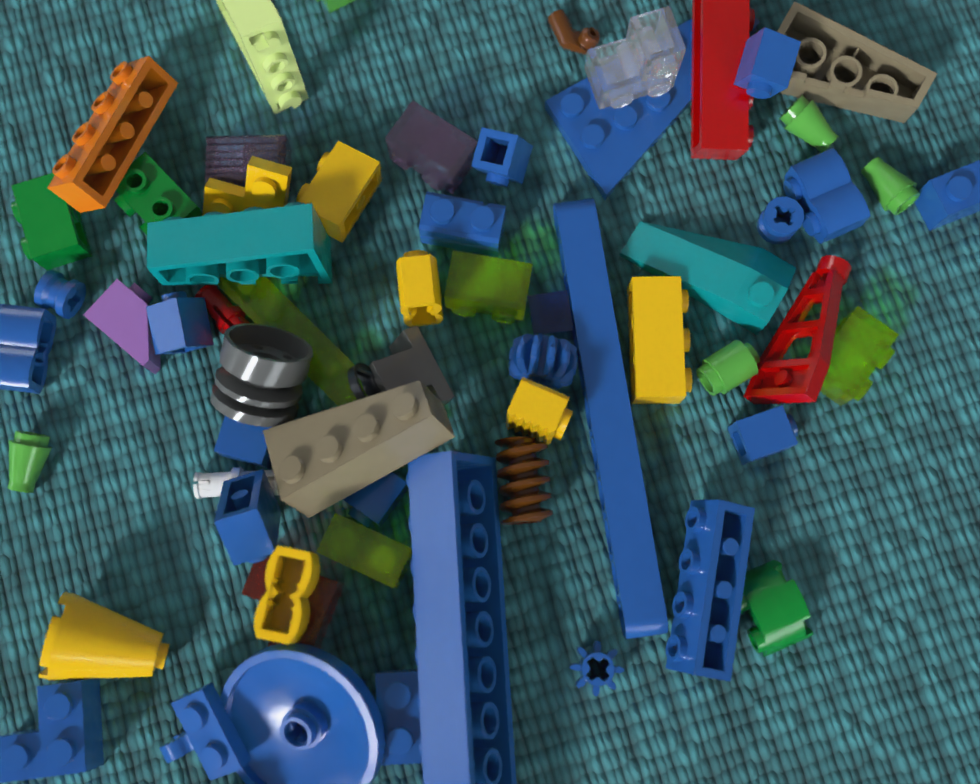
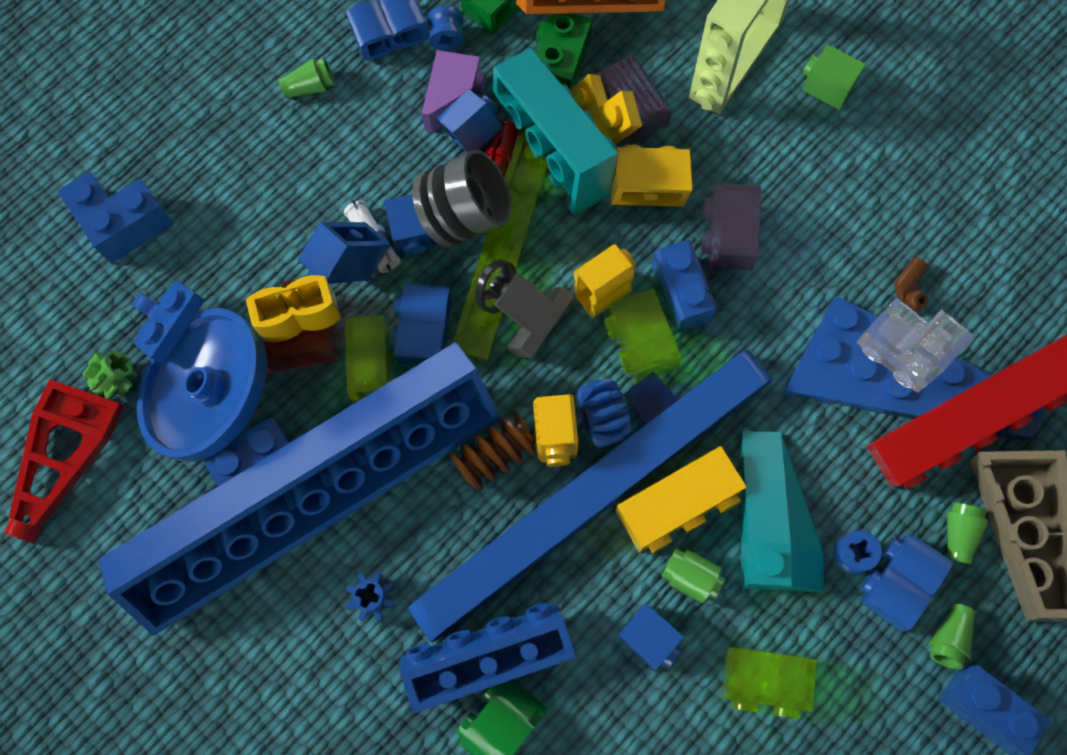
camera: 65 degrees right, 5 degrees down
(99, 644) = (194, 203): yellow cone -> none
(354, 445) = (442, 296): dark tan wedge -> none
(501, 157) = (759, 284): blue brick -> none
(767, 63) = (984, 454): blue brick -> none
(802, 378) = (715, 639): red plate -> none

